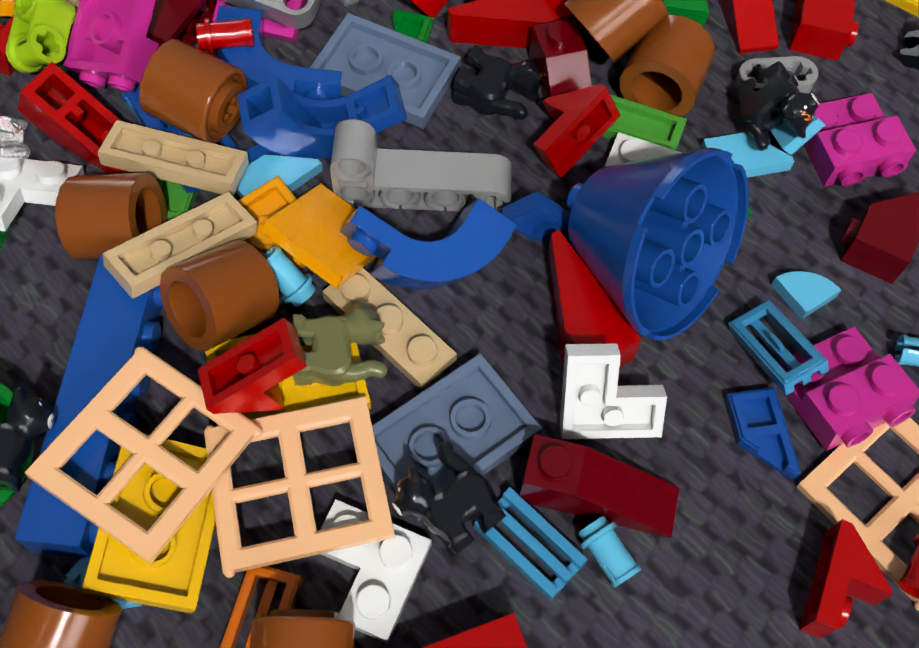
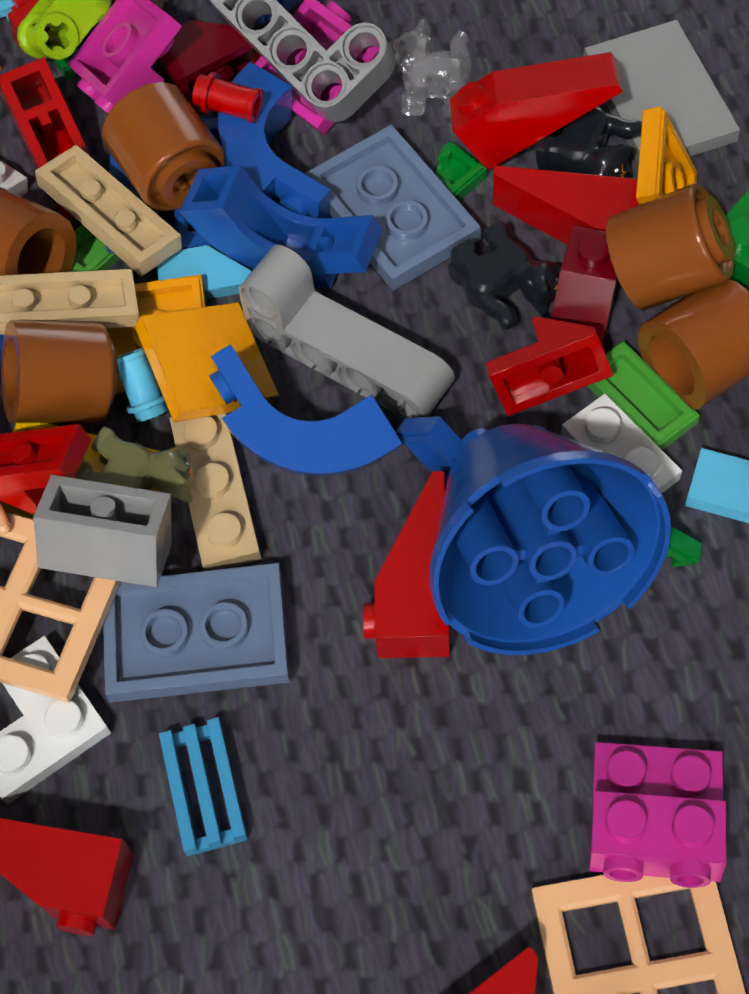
camera: 40 degrees right, 0 degrees up
(353, 389) = (103, 530): none -> light grey brick
(460, 500) = (136, 703): black animal -> none
(595, 485) = (305, 768): dark red slope -> none
(598, 407) = (358, 685): white plate -> none
(609, 551) = (273, 839): medium azure pin -> none
(761, 429) = (534, 806): blue tile -> none
(797, 372) = (607, 764): dark azure tile -> none
(805, 291) = (699, 683): medium azure tile -> none

